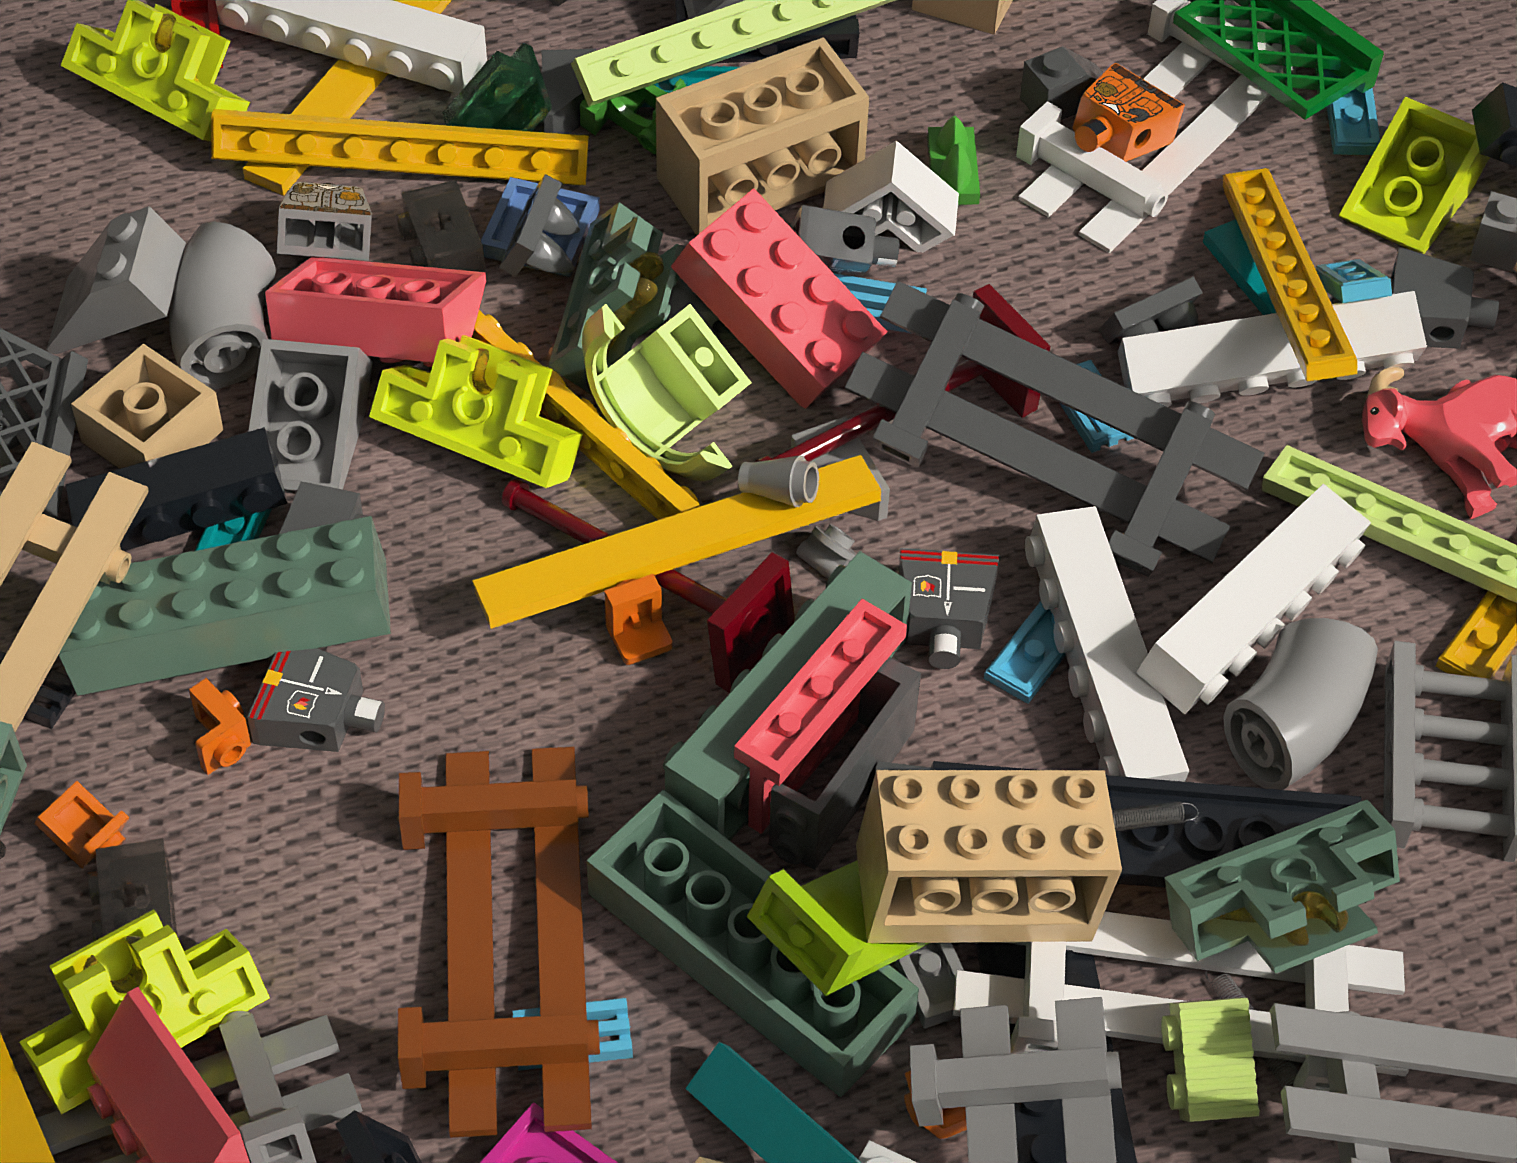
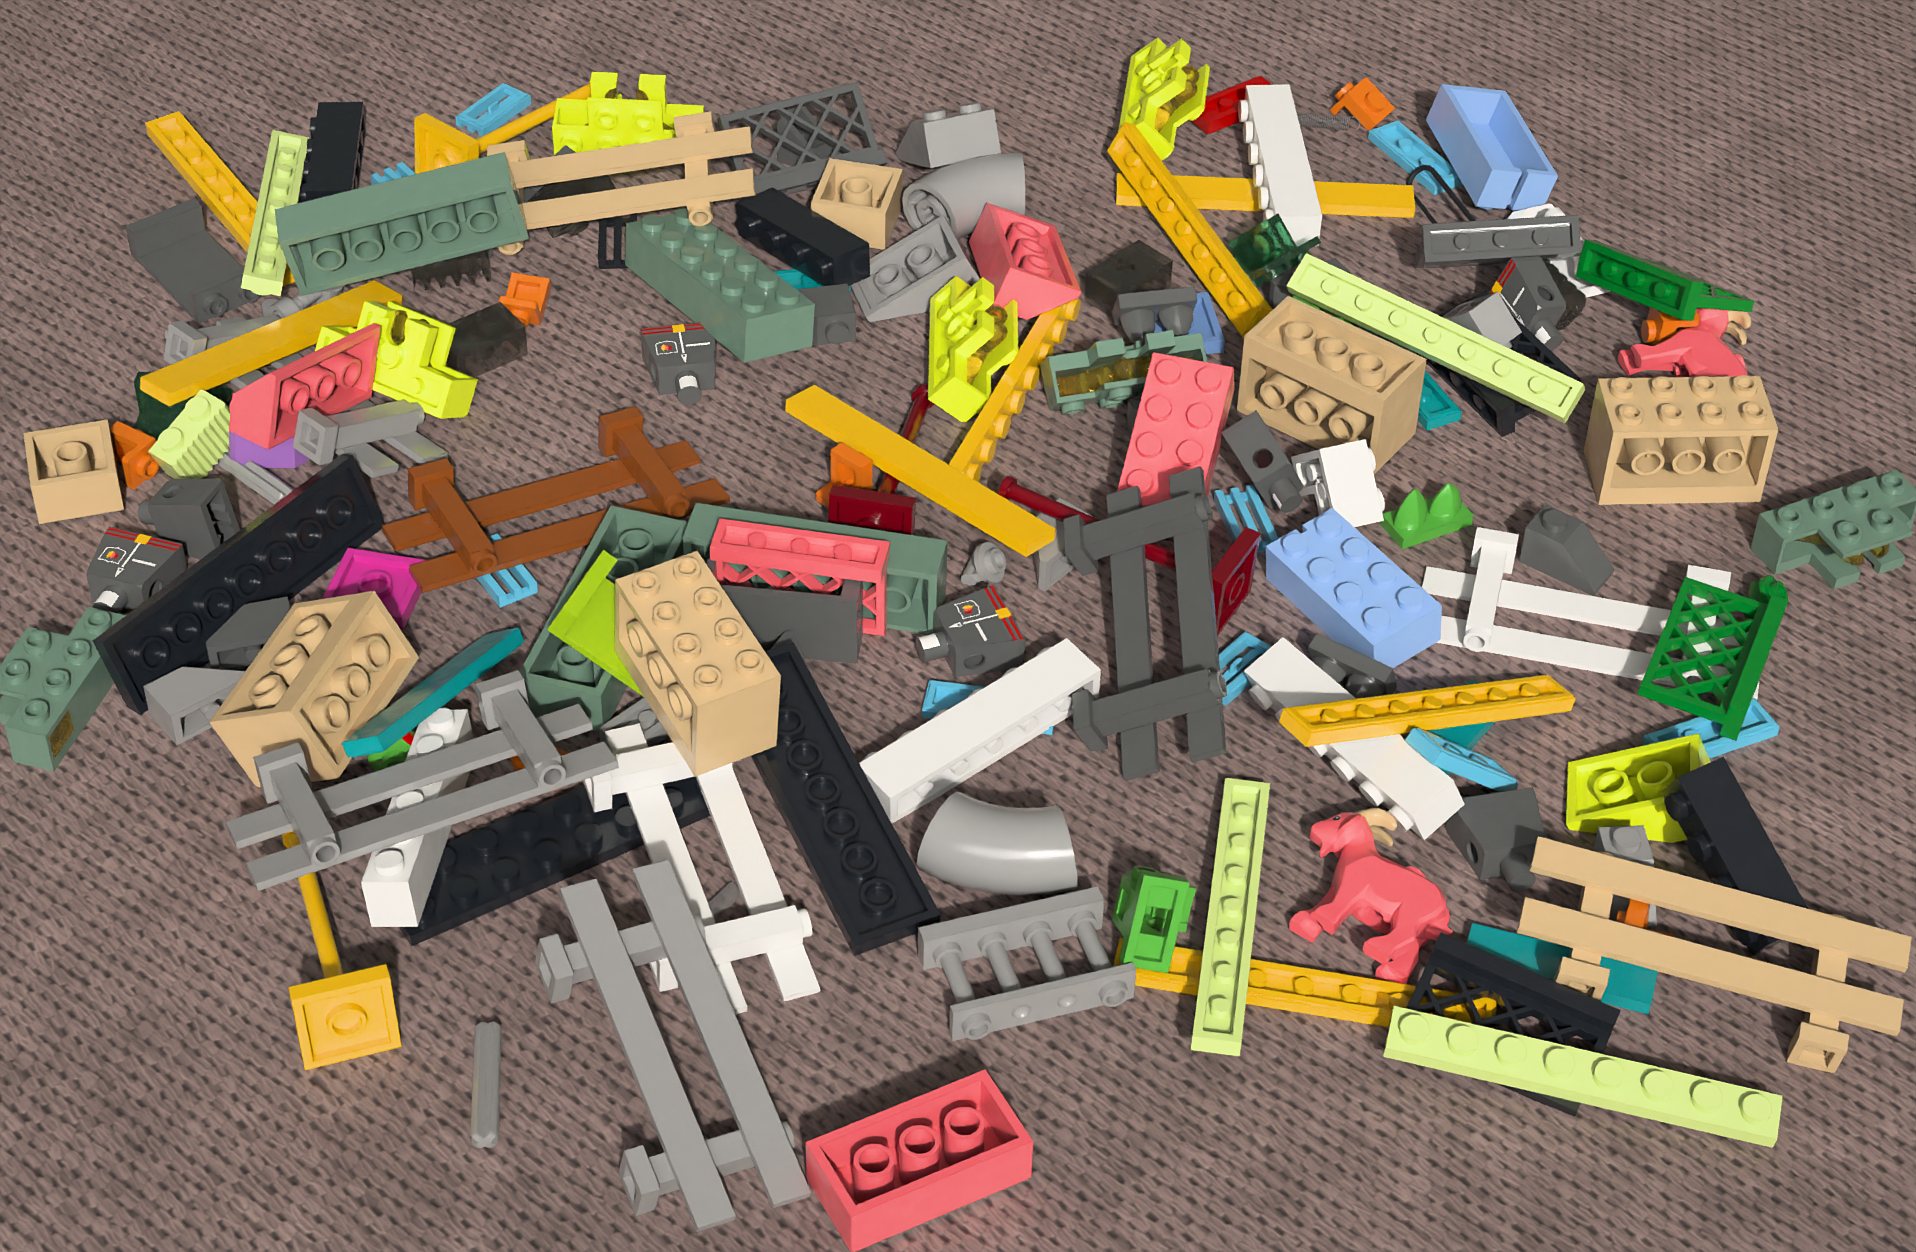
camera: 65 degrees right, 10 degrees down
(226, 726) = (625, 333): orange bracket -> none
(324, 221) = (1087, 216): light grey torso -> none
(663, 387) = (1052, 419): yellowish green piece -> none
(783, 479) = (990, 488): light grey cone -> none
(1057, 257) = (1353, 590): none -> light blue piece
(1125, 115) = (1543, 584): orange torso -> none
(1163, 820) = (812, 765): light grey piece -> none
(1211, 1059) = (619, 885): yellowish green brick -> none
(1254, 599) = (1088, 789): white brick -> none
(1290, 891) = (801, 868): sand green piece -> none
(1471, 607) = (1149, 902): none -> bright green tile

